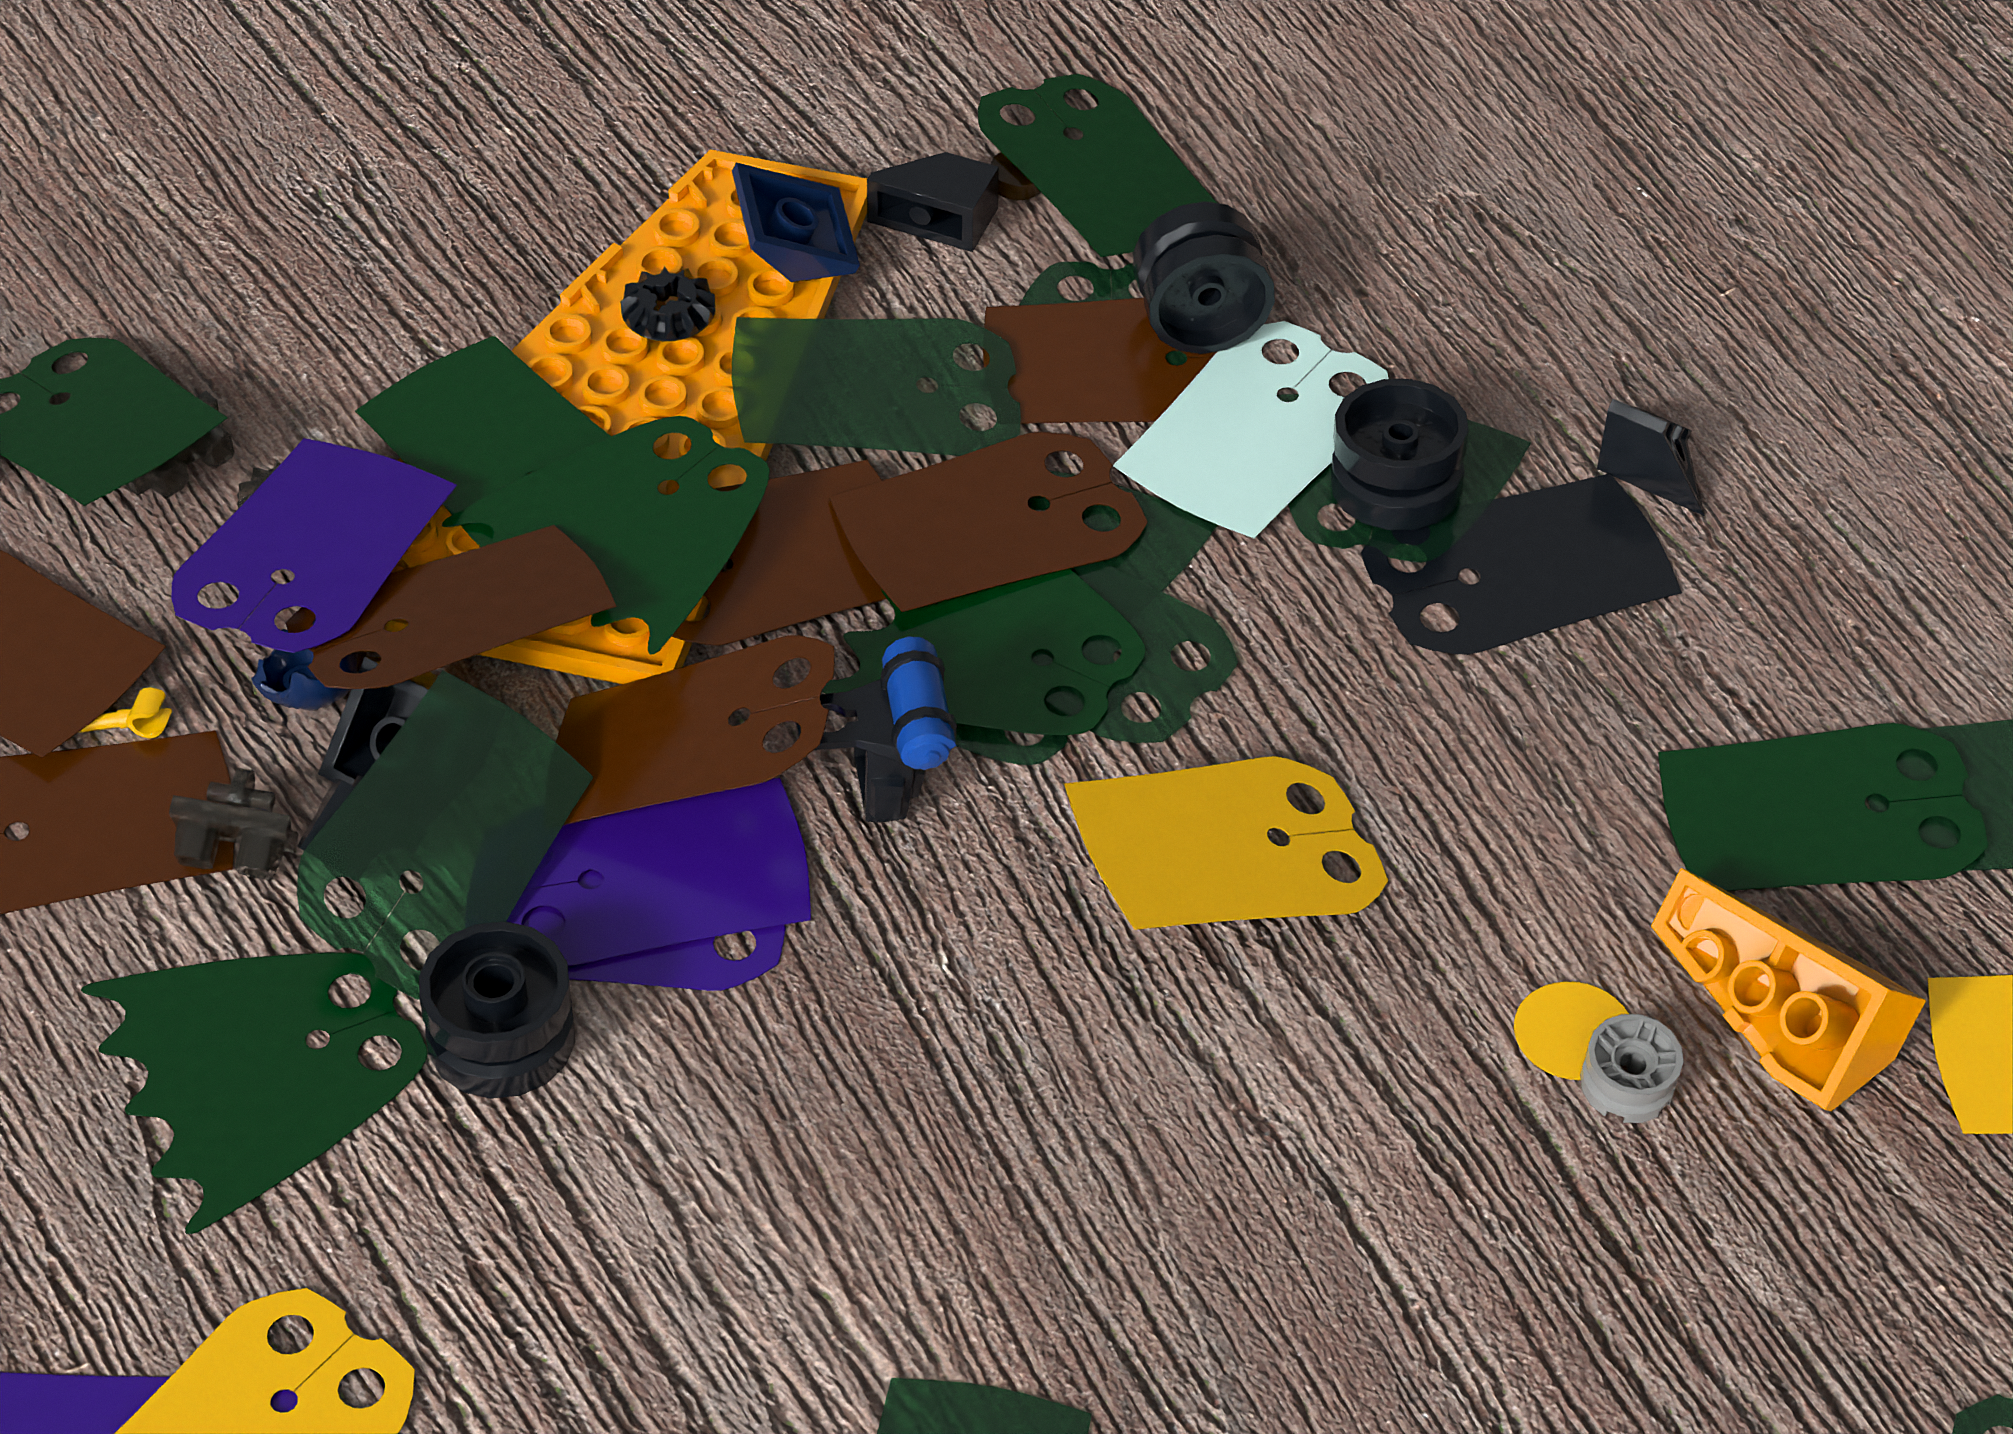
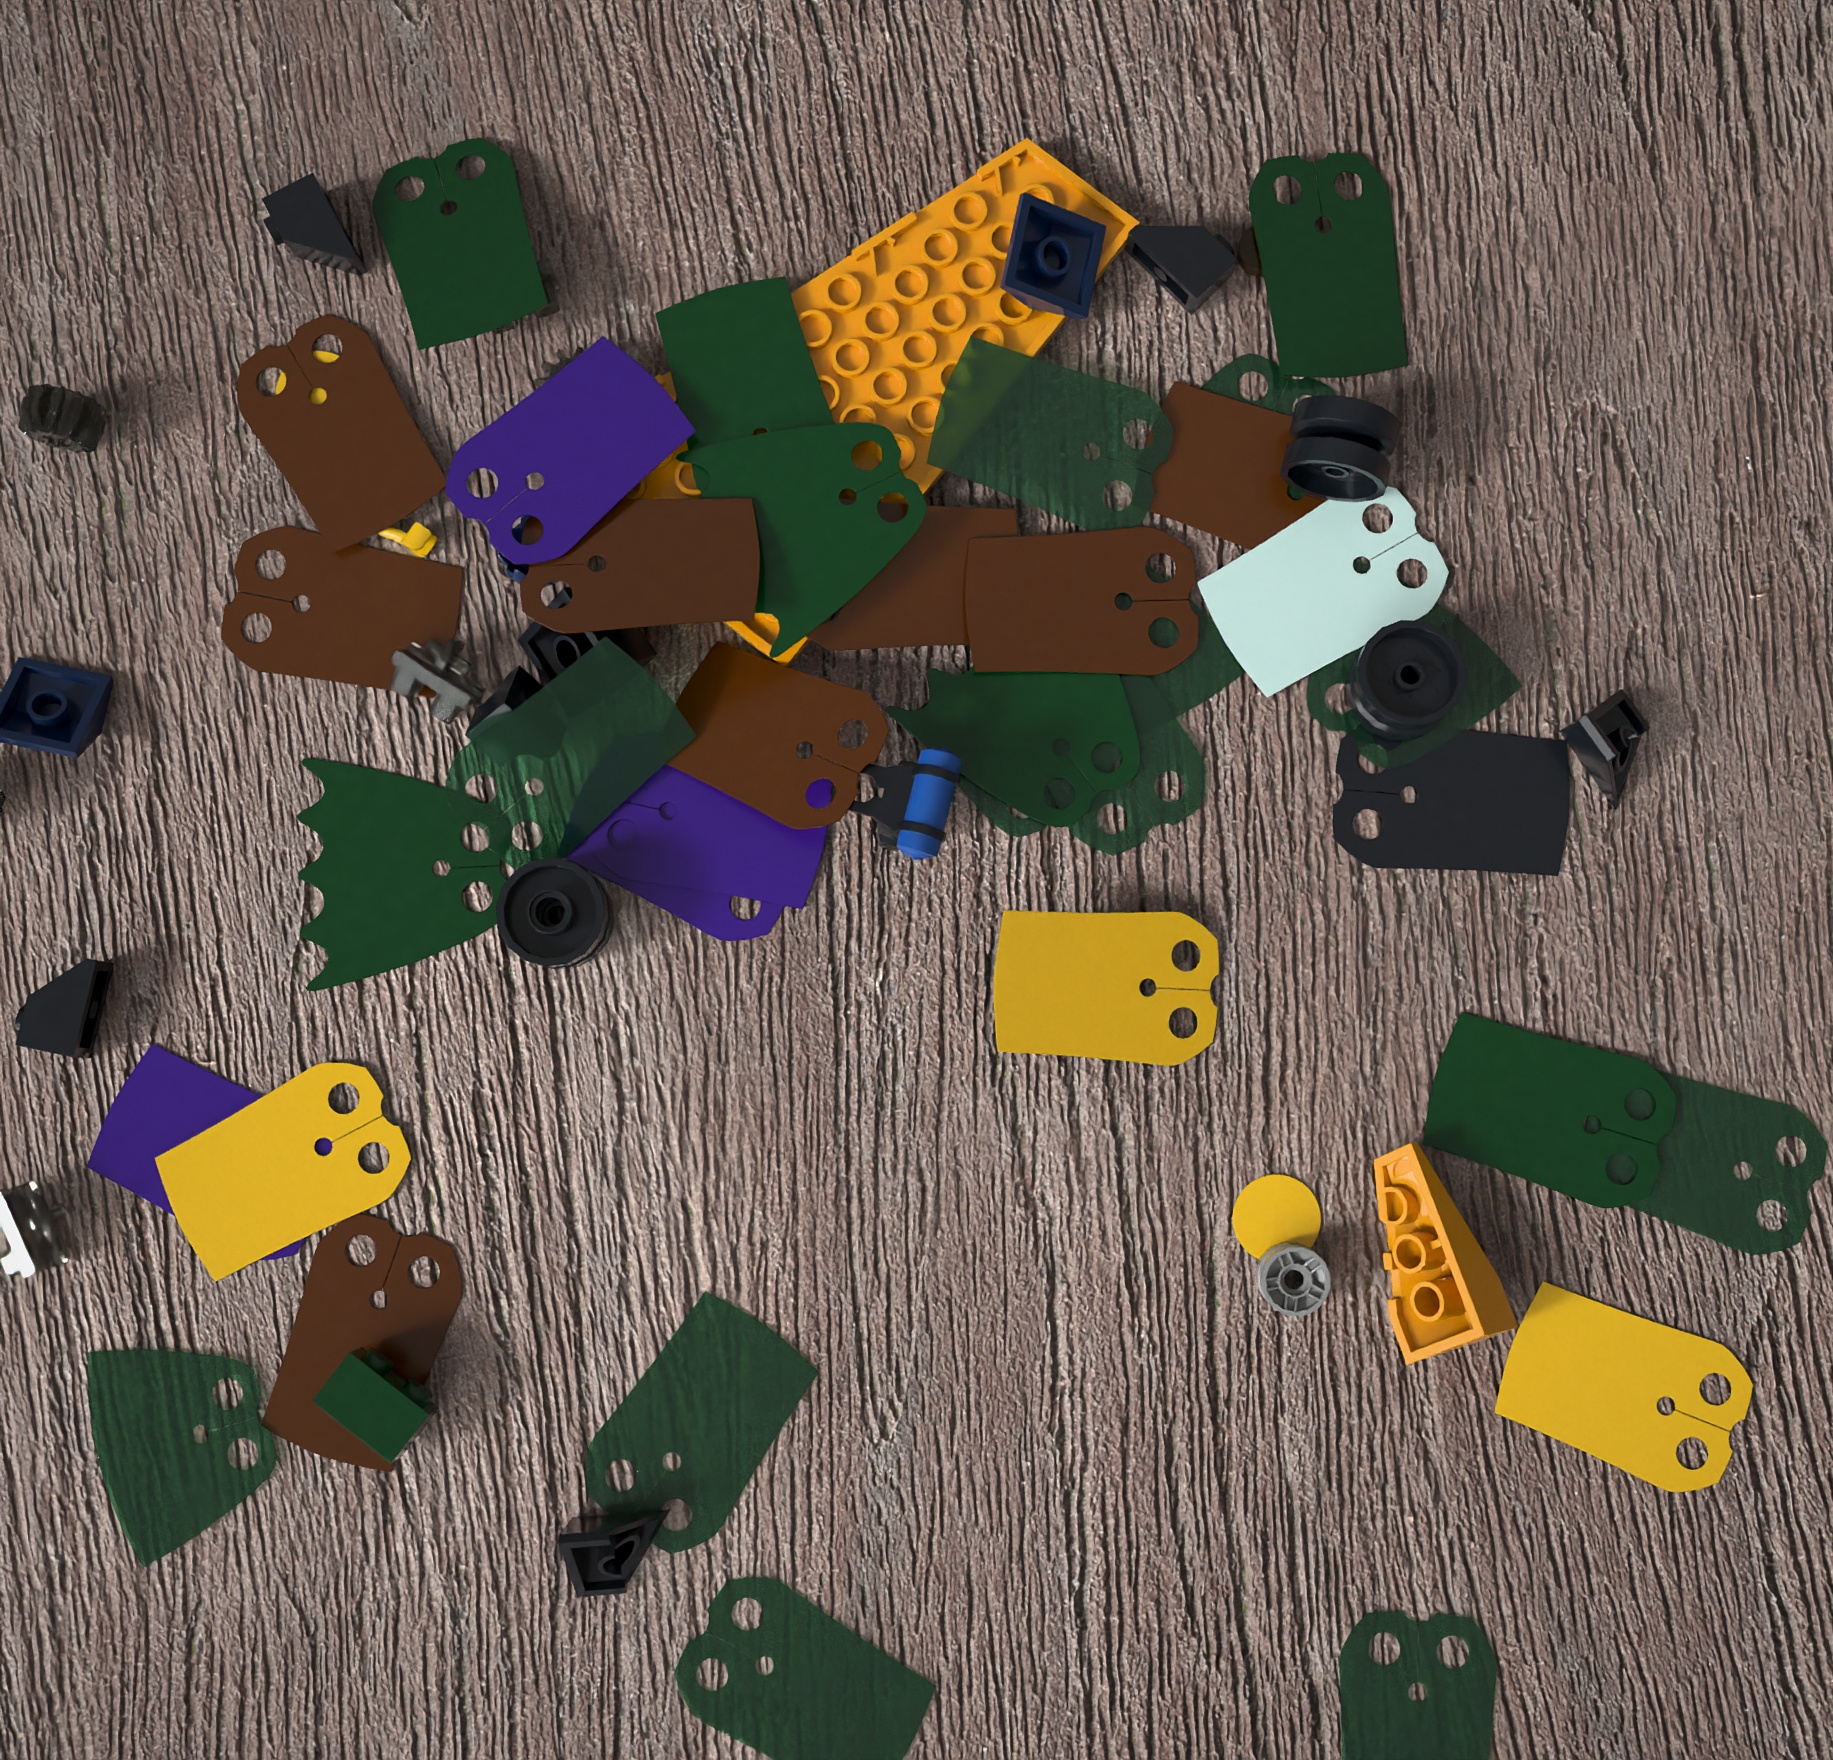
camera: 30 degrees right, 35 degrees up
(677, 318) = (924, 323): black gear -> none

